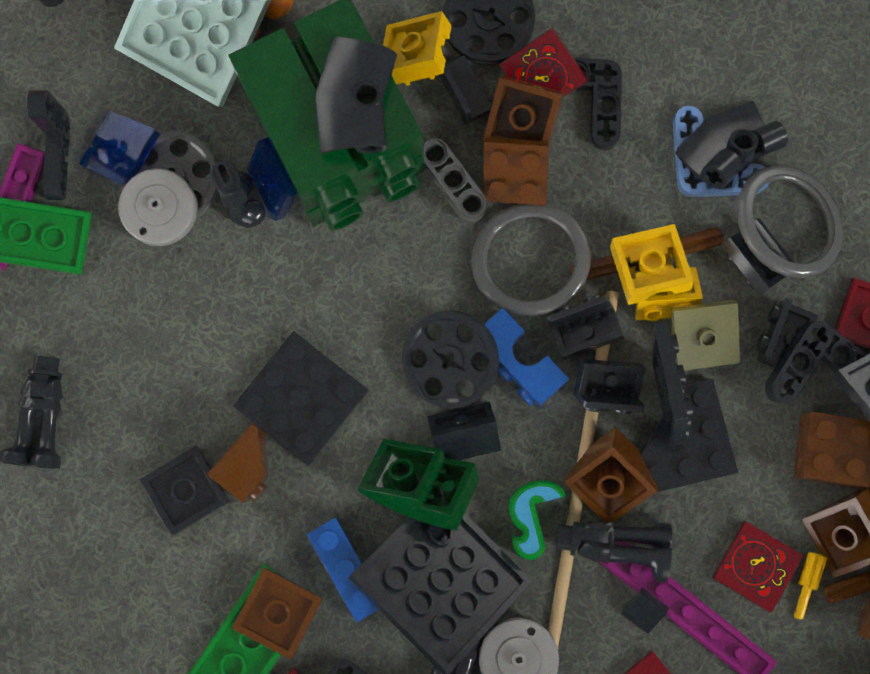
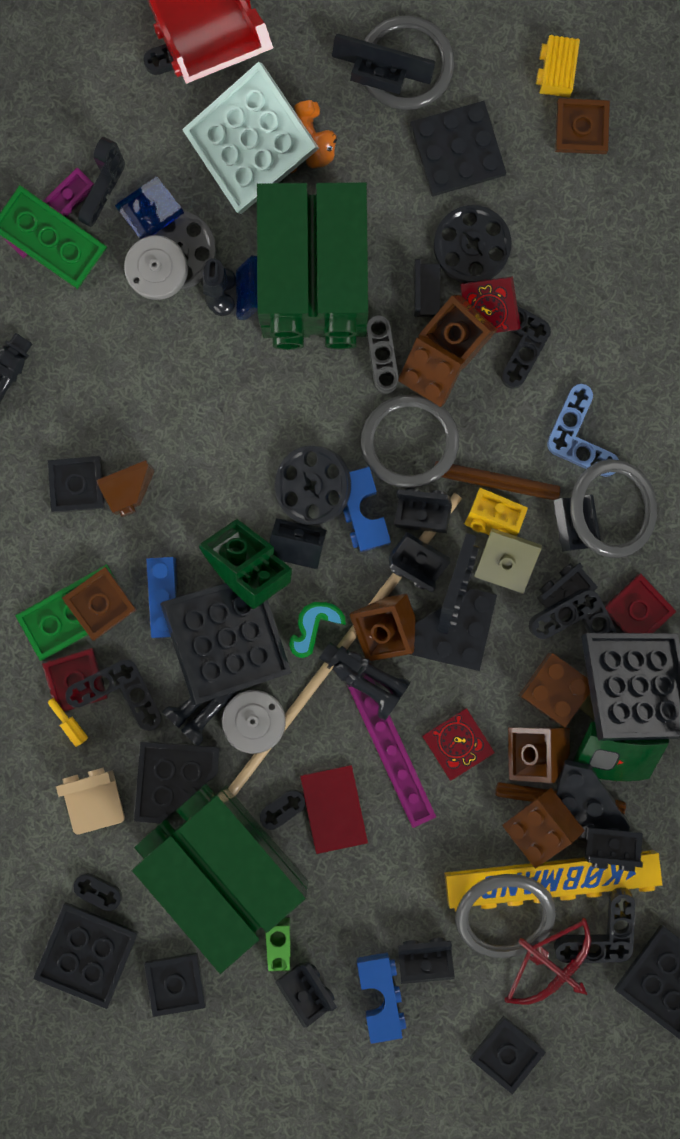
camera: 25 degrees right, 5 degrees up
(300, 398) = (191, 459): black plate -> none
(349, 72) = (334, 242): black panel -> none
(421, 43) = (406, 235): yellow brick -> none
(645, 610) = (361, 733): black tile -> none
(653, 252) = (497, 478): yellow brick -> none
(730, 143) = (601, 428): black panel -> none
(810, 580) = (490, 772): yellow axle -> none

